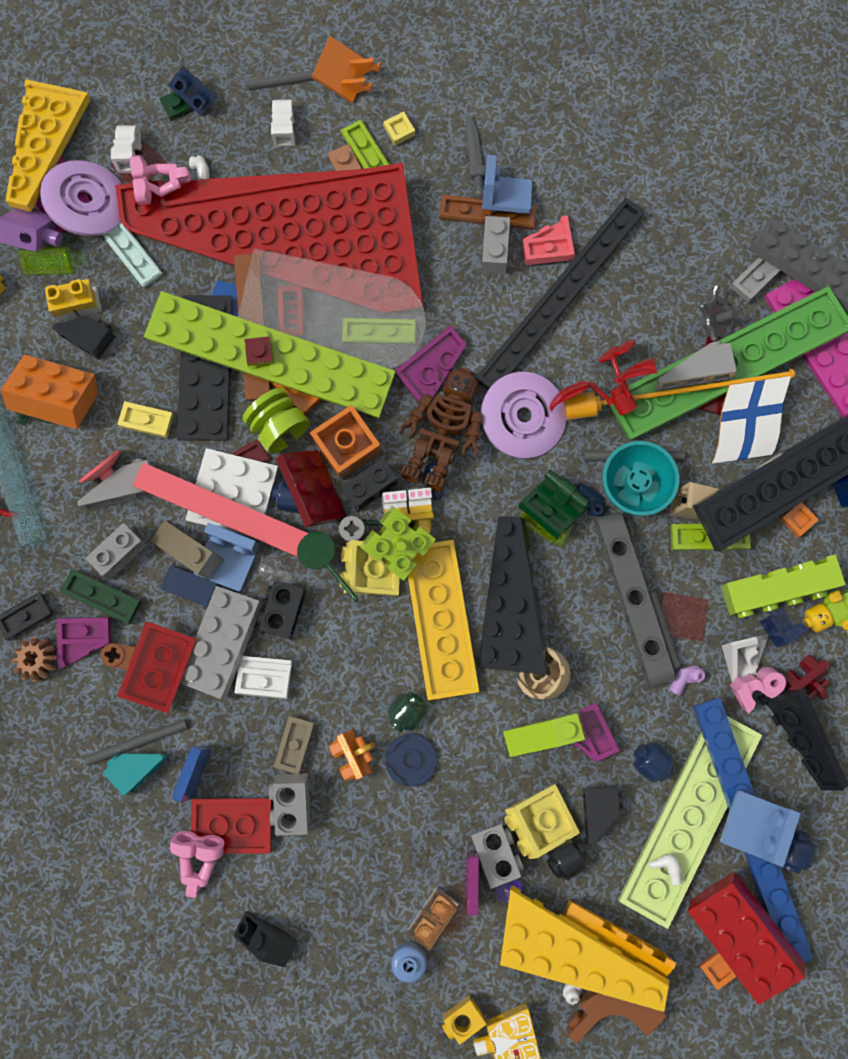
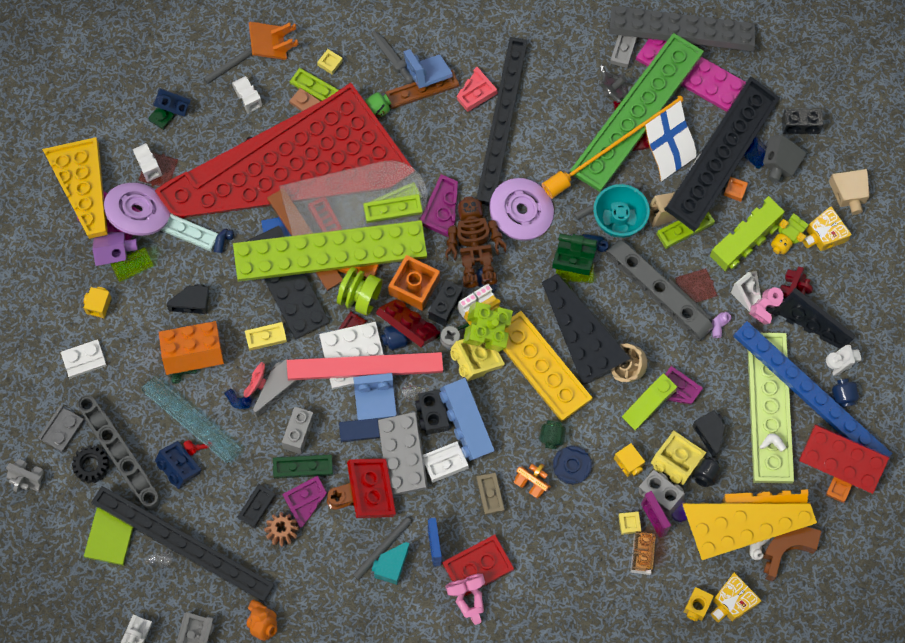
camera: 35 degrees left, 10 degrees down
(71, 479) = (237, 402): none -> clear blue arm
(72, 299) = (167, 280): yellow hips -> none
(141, 185) = (179, 180): bright pink piece -> none
(162, 278) = (221, 238): none -> dark blue arm
(187, 550) = (345, 405): dark tan slope -> none
(200, 164) = (206, 150): white arm -> none
(258, 351) = (324, 250): dark red plate -> none
(265, 940) = (542, 624): black slope -> none
(293, 804) = (515, 526): light grey brick -> none
(312, 642) = (467, 419): none -> medium blue wedge
(317, 552) = (436, 361): dark green piece -> none
(368, 339) = (392, 208): none -> lime plate
(405, 953) = (642, 593): medium blue head -> none
(424, 206) = (378, 104): none -> bright green head
(438, 870) = (629, 523): none -> light yellow plate
(481, 794) = (629, 460): none -> yellow brick
(495, 245) = (440, 108): light grey brick -> none
(620, 395) = (579, 164): red plant -> none
(653, 762) = (728, 384): dark blue head -> none
(708, 365) = (624, 119): light grey slope -> none
(760, 828) = (814, 385): medium blue bracket -> none
(781, 629) = (762, 263): clear blue panel -> none
(817, 809) = (843, 359): none -> white hips

